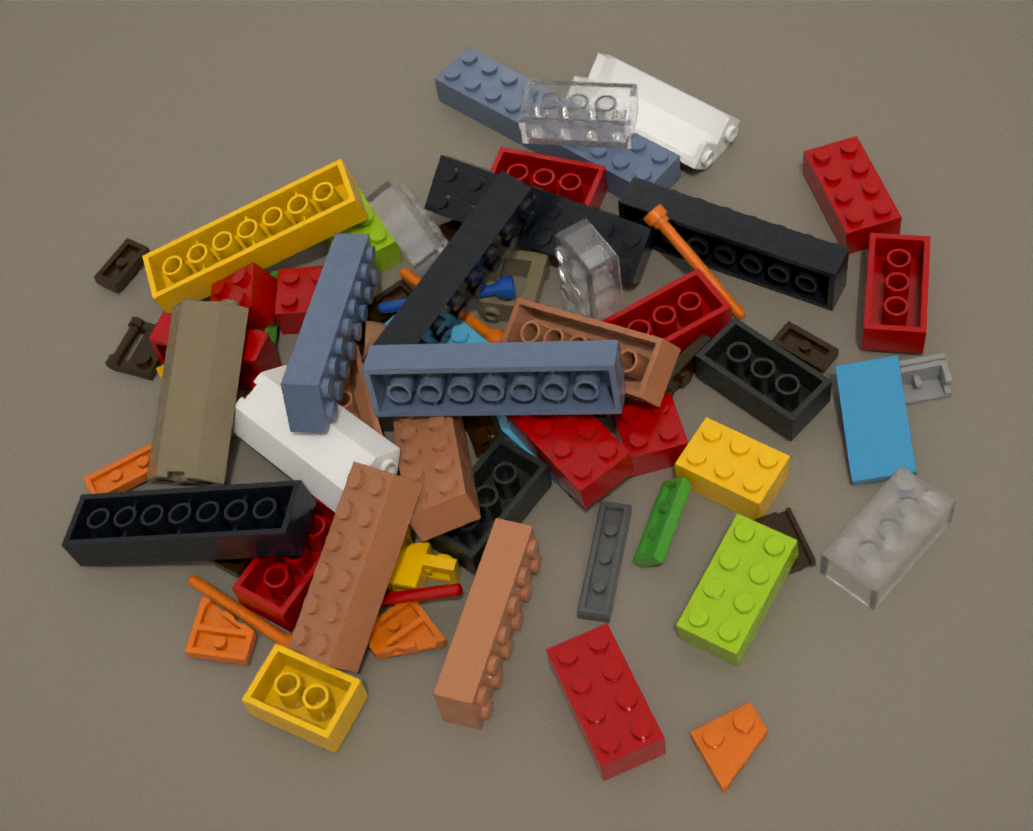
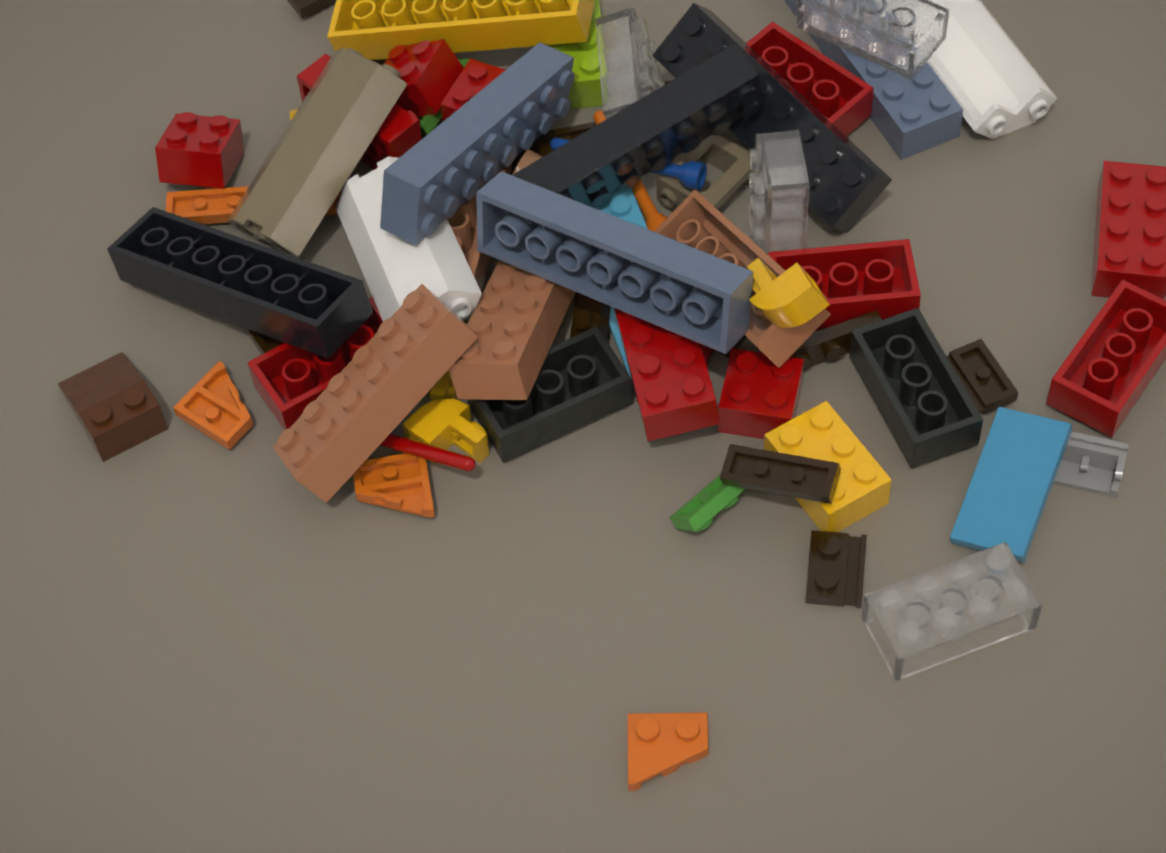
camera: 20 degrees right, 0 degrees up
(93, 432) = (199, 150): none -> red brick
(130, 672) = (114, 406): none -> reddish brown slope
(143, 360) = (289, 95): dark brown plate -> none
(240, 611) = (252, 398): orange piece -> none
(305, 698) = (263, 504): yellow brick -> none
(488, 624) = (481, 512): nougat brick -> none
(604, 562) = (641, 505): dark grey tile -> none
(606, 702) = (557, 644): red brick -> none
(651, 351) = (788, 298): none -> yellow brick
(659, 220) = (891, 168): orange piece -> none
(707, 488) = (780, 473): none -> dark brown plate
(737, 589) = (757, 592): lime brick -> none
(744, 244) = (972, 233): black brick -> none

